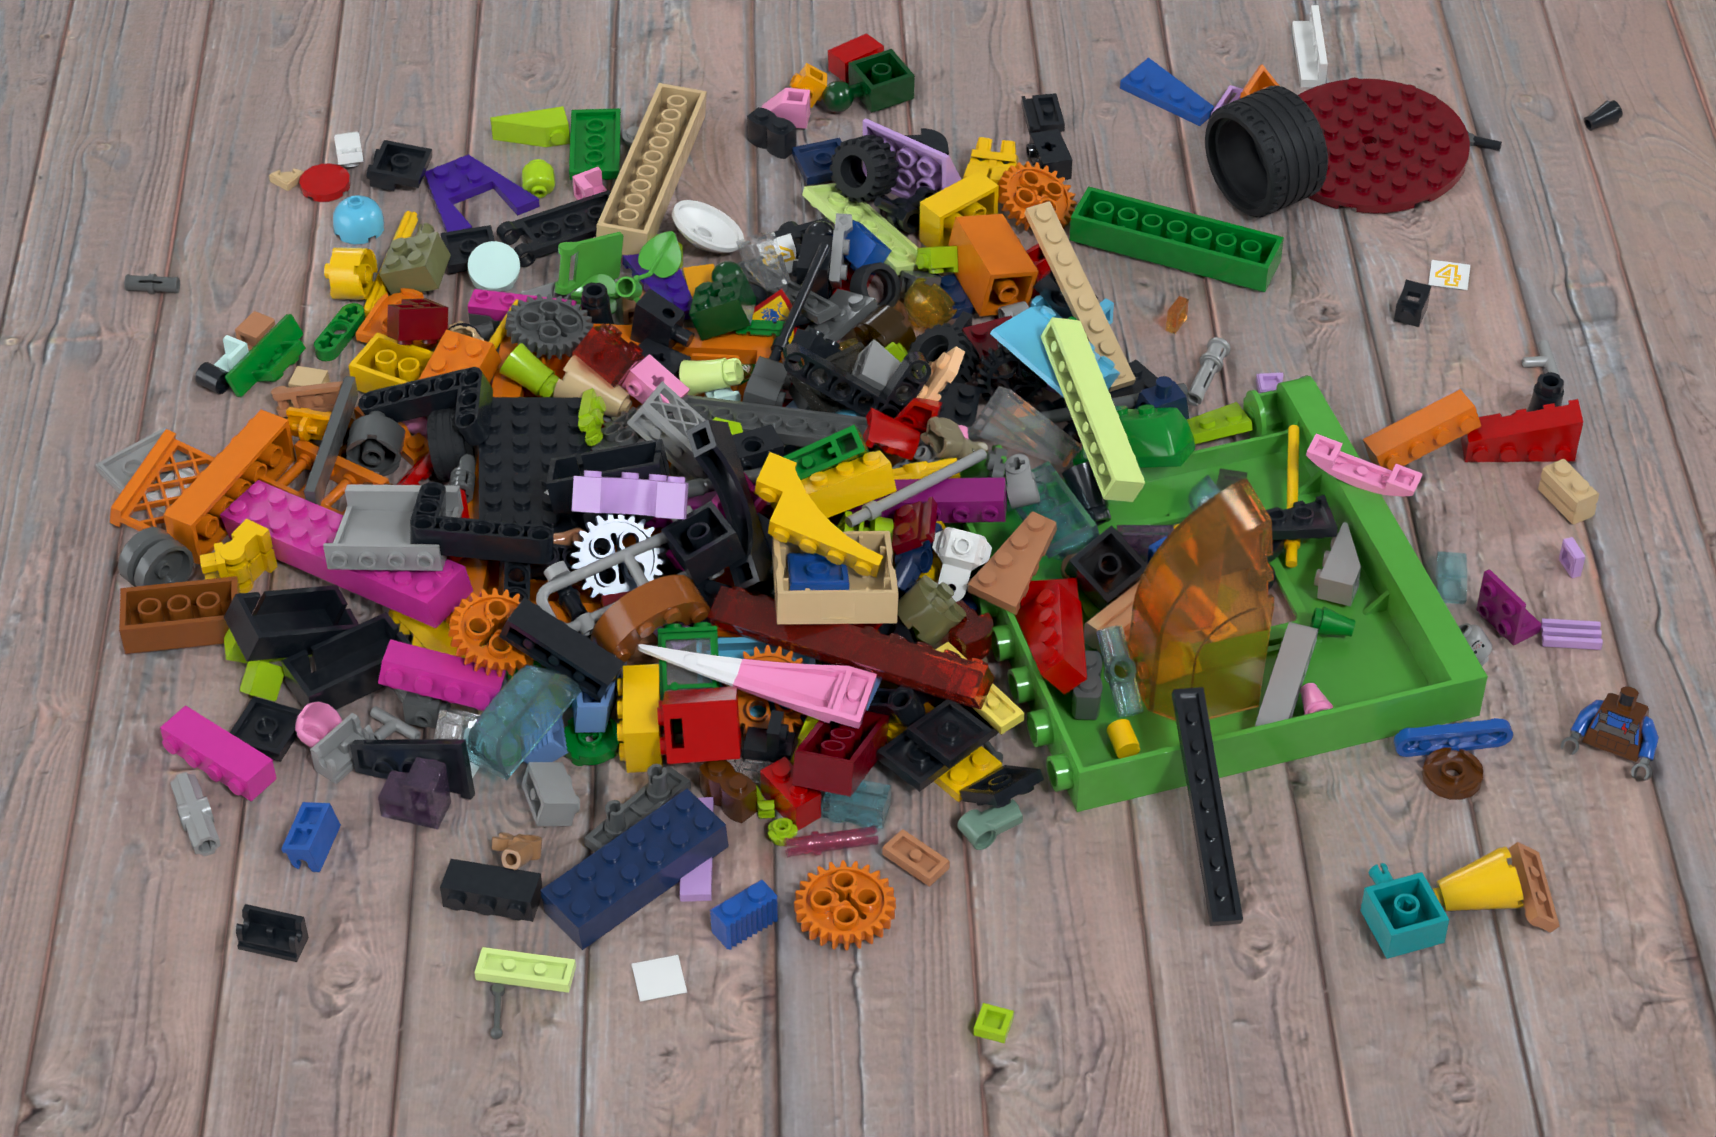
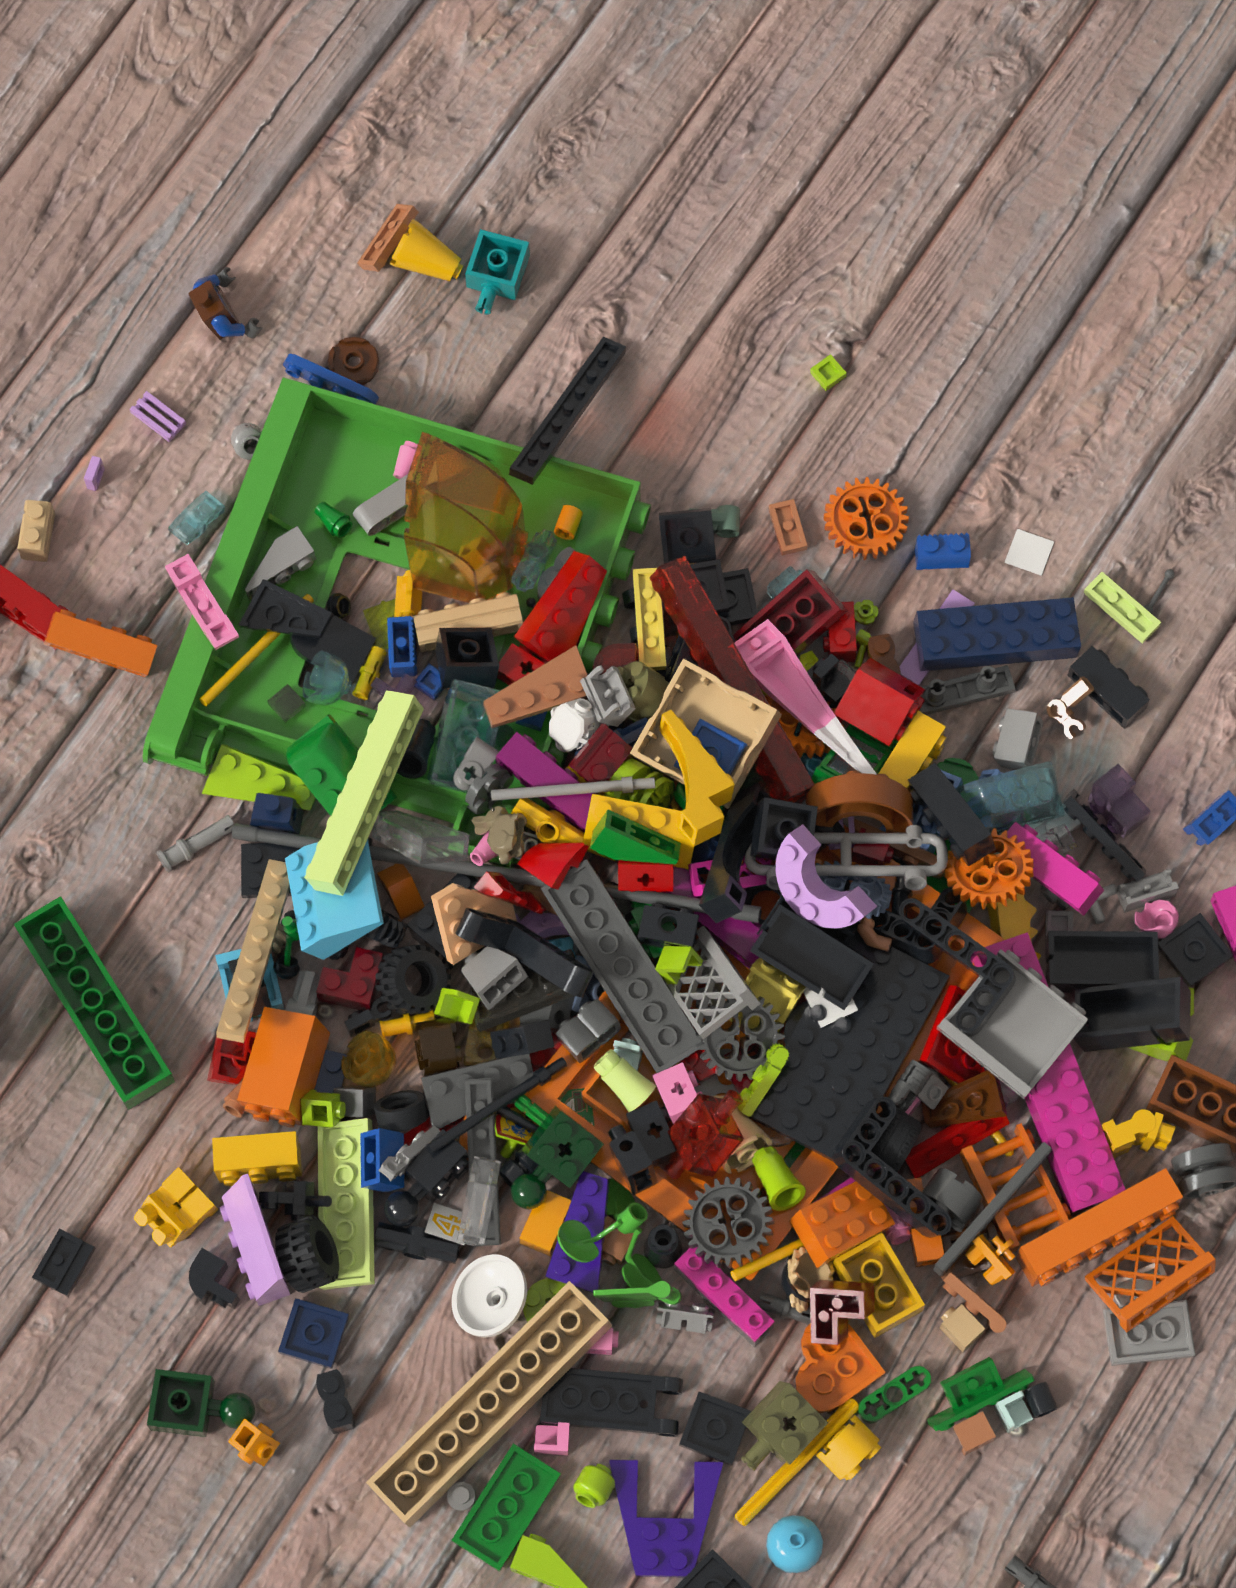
camera: 145 degrees left, 25 degrees up
(494, 266) = (713, 1376): light aqua tile -> none
(792, 105) = (300, 1426): bright pink slope -> none
(818, 843) = (843, 581): clear pink pin -> none
(850, 51) = (177, 1457): red brick -> none
(950, 572) = (608, 696): none -> light grey hinge
(1031, 186) = (157, 1152): orange gear -> none
(1050, 150) = (105, 1180): black brick -> none
(1177, 314) = (166, 919): clear orange tile -> none
(1268, 381) = (155, 801): lavender tile -> none
(1505, 610) = (188, 457): magenta bracket -> none

